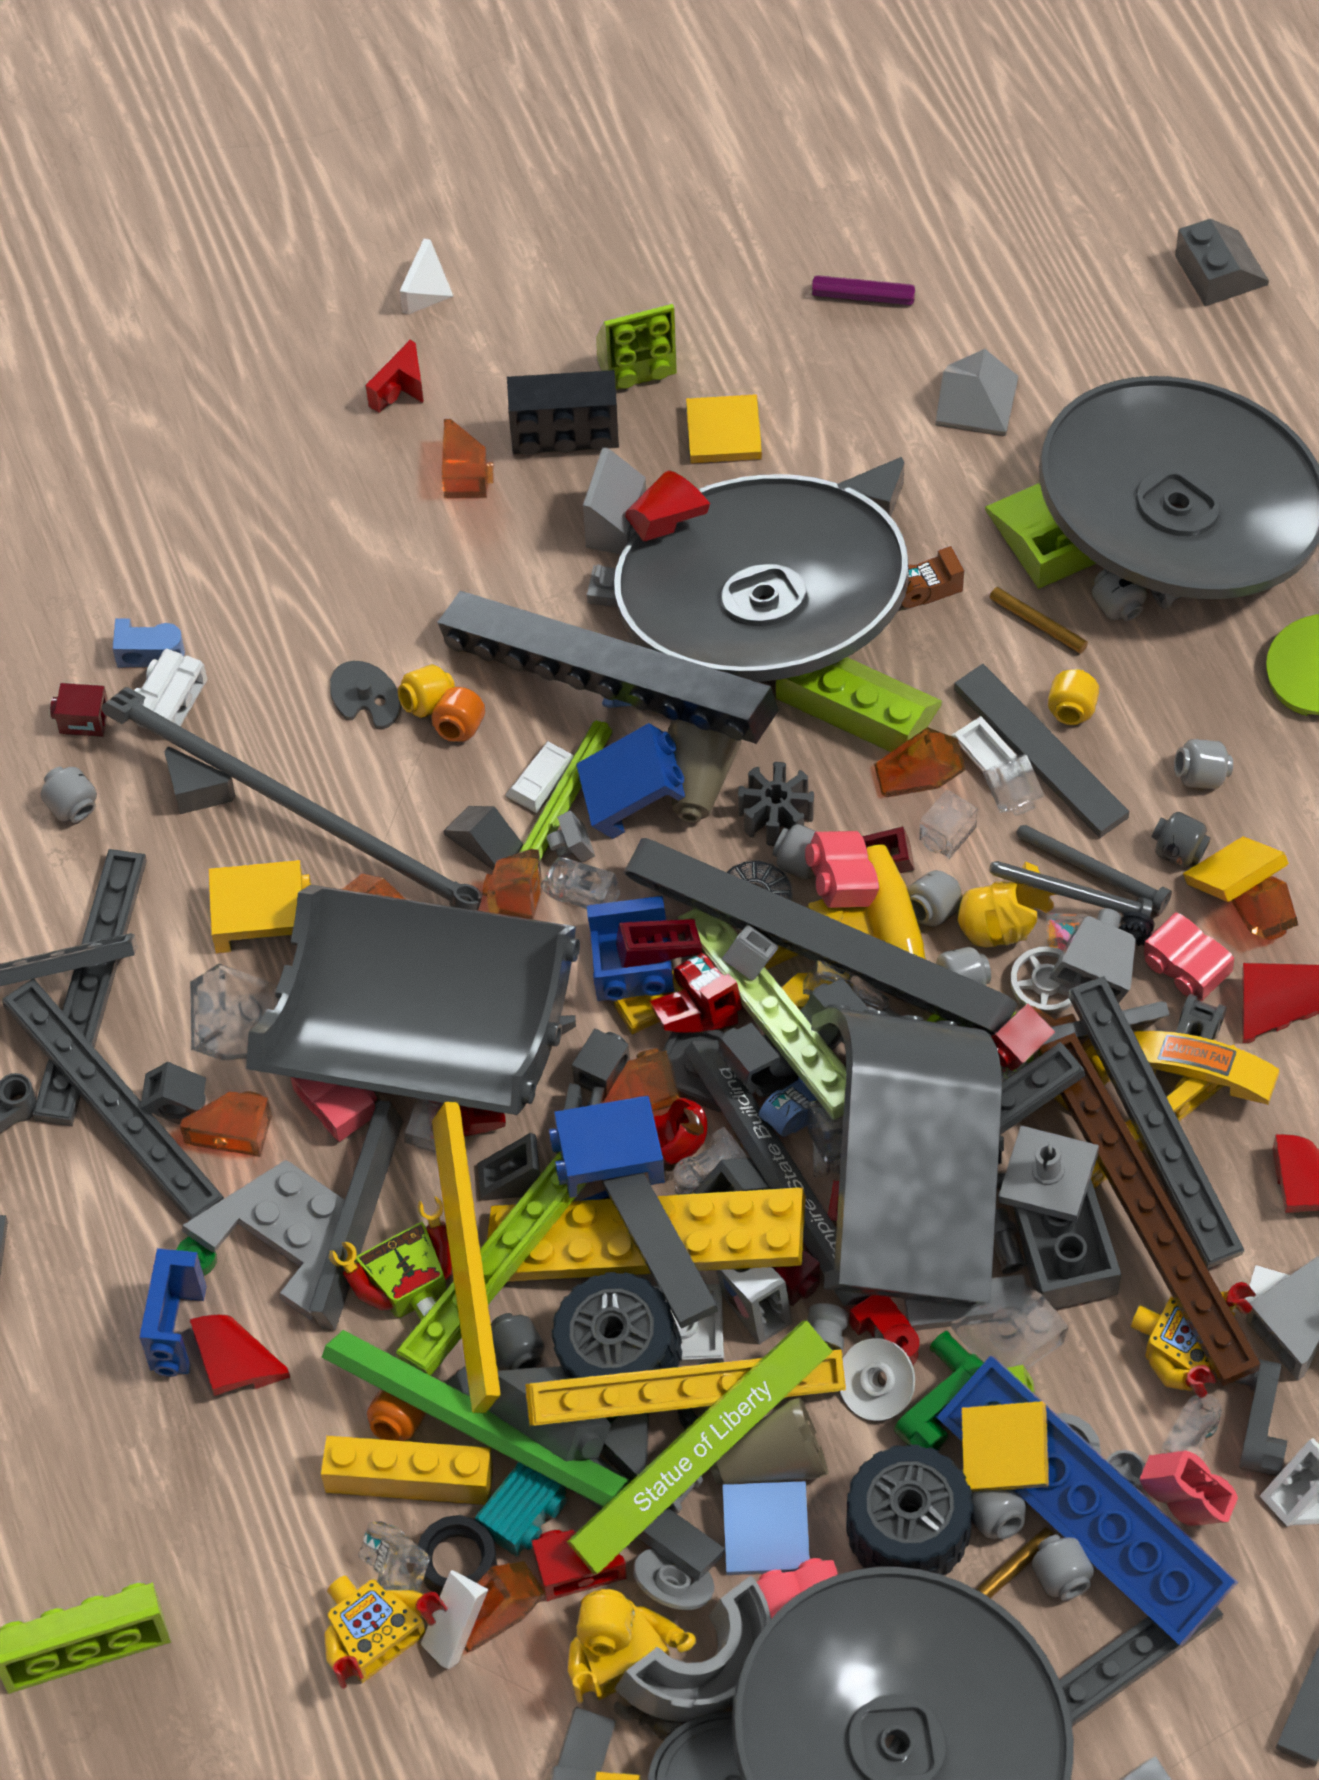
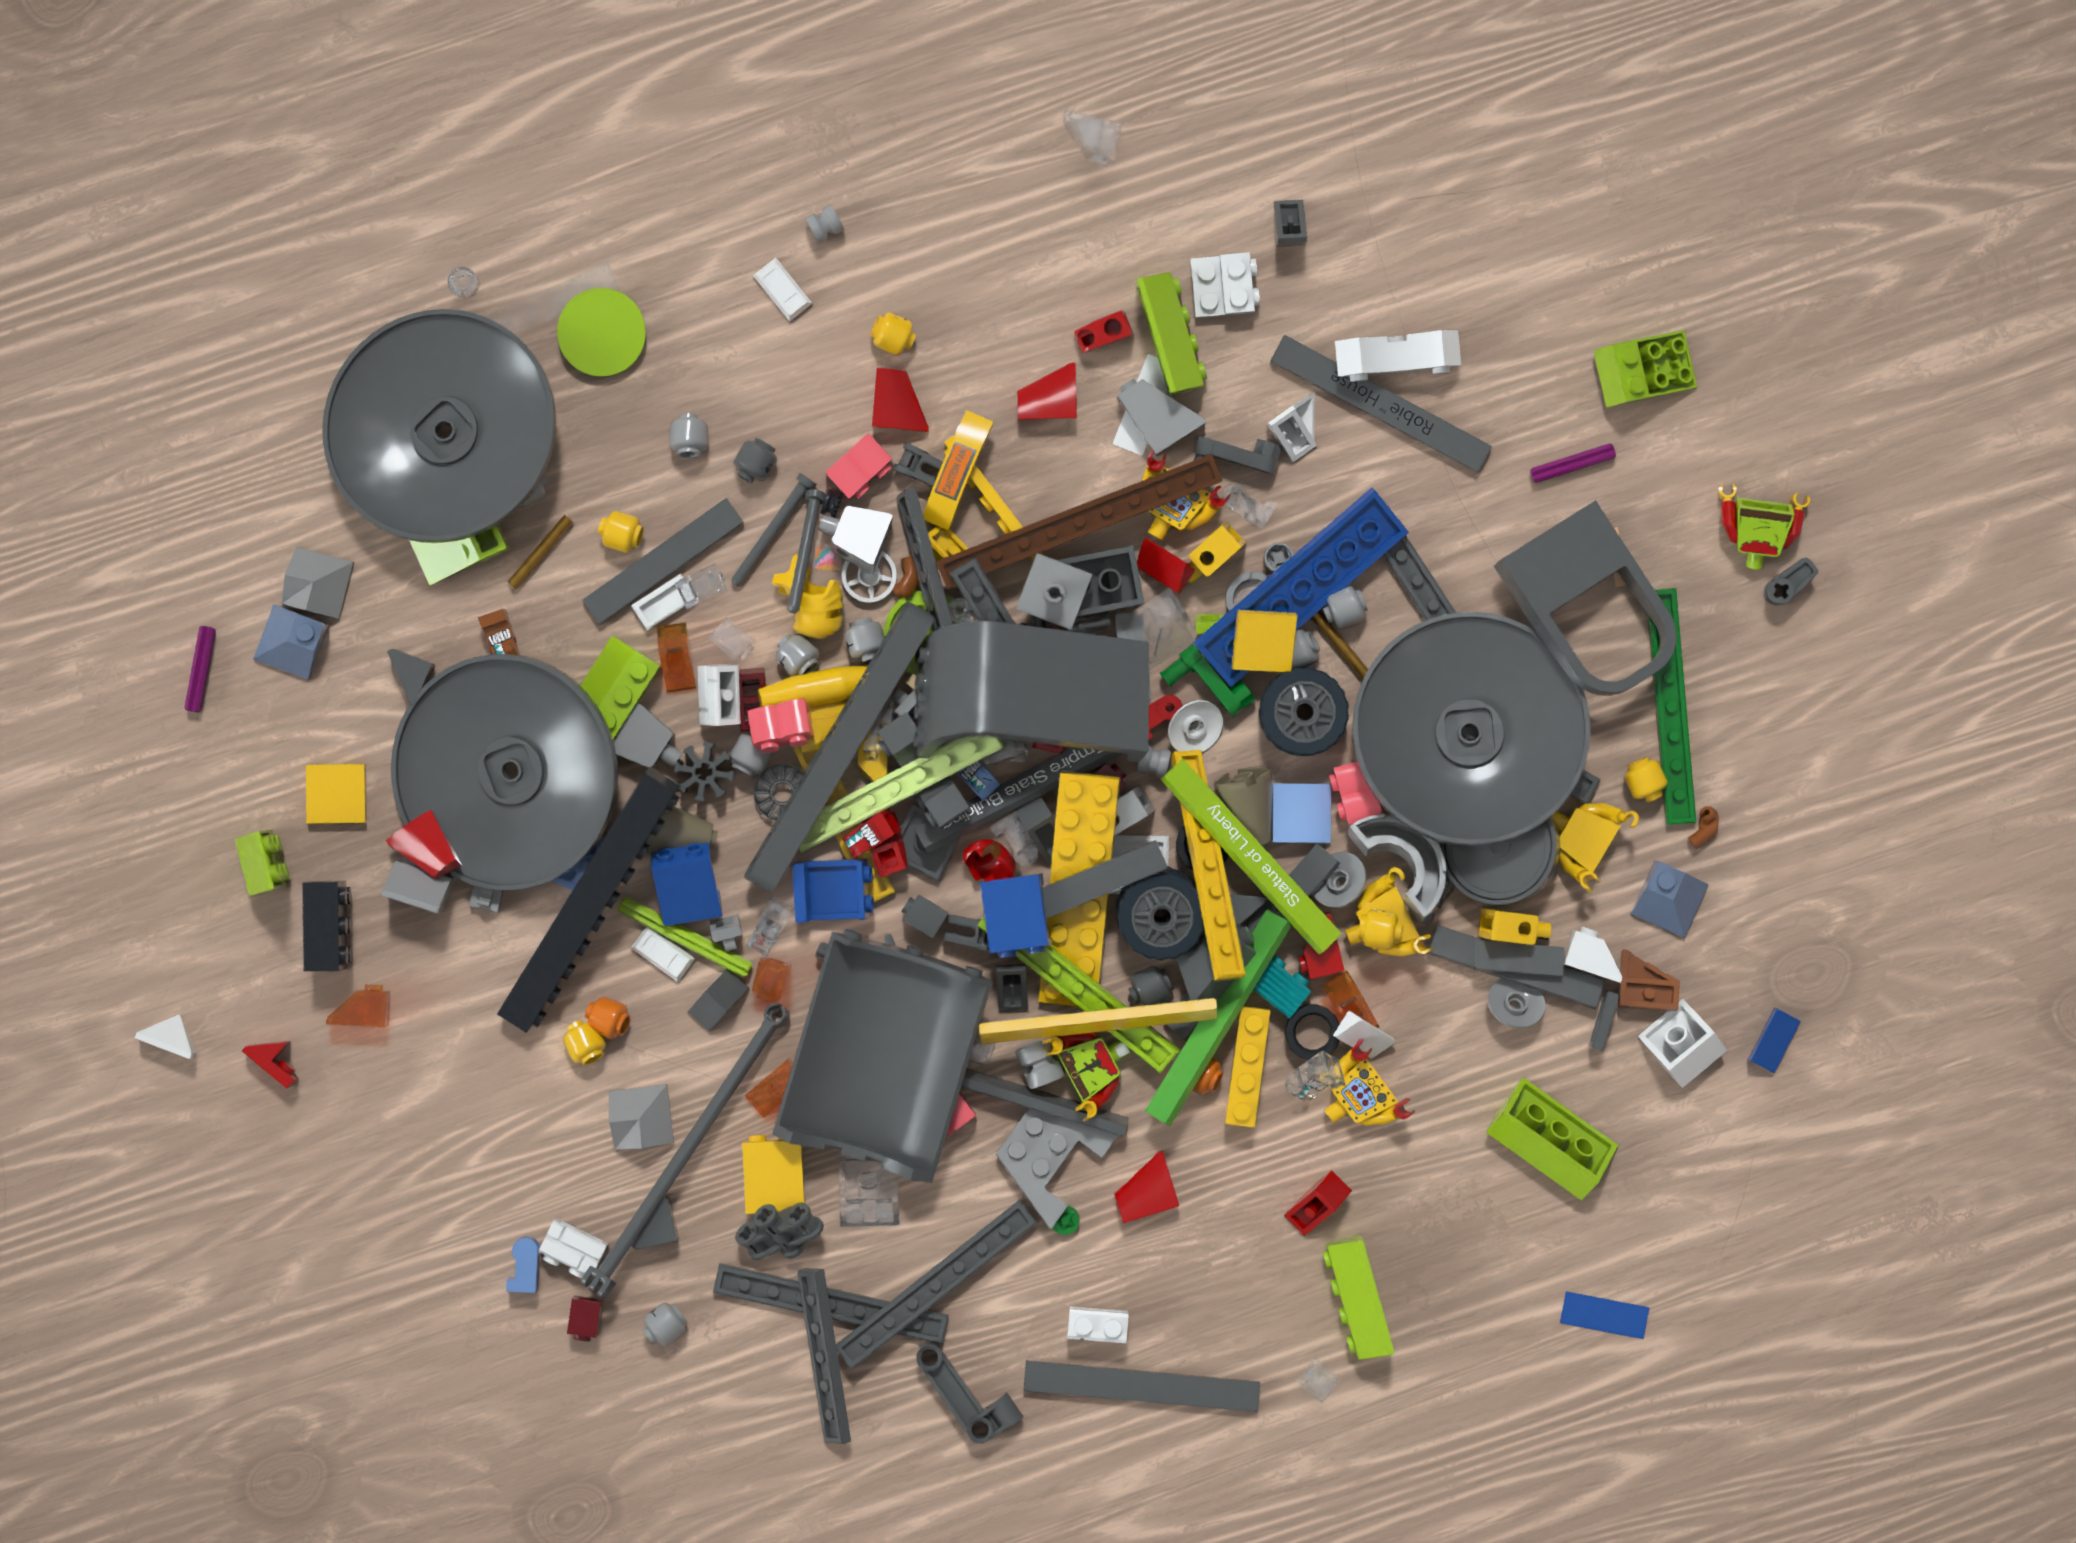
camera: 90 degrees left, 30 degrees up
(51, 1297) = (1097, 1324): none -> white brick
(173, 1092) = (936, 1237): dark grey brick -> none
(173, 1278) = (1119, 1243): blue panel -> none
(185, 909) = (779, 1231): none -> dark grey axle
(216, 1576) = (1318, 1203): none -> red slope
(230, 1124) = (960, 1193): clear orange slope -> none
(333, 758) = (640, 1117): none -> light grey slope
(357, 686) = (569, 1097): dark grey piece -> none
(399, 1208) = (1039, 1066): none -> light grey wheel
(635, 950) = (840, 867): dark red slope -> none
(647, 1075) = (951, 882): clear orange slope -> none
(750, 952) = (850, 799): light grey slope -> none
(814, 735) = (646, 739): none -> light grey torso
(876, 809) = (719, 694): none -> white brick
(903, 378) = (291, 641): none -> sand blue slope
(1021, 1037) = (946, 603): brick -> none
(1097, 1326) = (1164, 566): none -> red slope
(1125, 1389) = (1222, 544): none -> yellow torso
(1155, 1122) = (1006, 508): dark grey tile -> none
(1188, 1488) = (1297, 513): coral brick -> none
(1217, 261) = (191, 366): dark grey slope -> none
(1236, 868) = (788, 422): yellow tile -> none
(1267, 909) = (814, 406): clear orange slope -> none

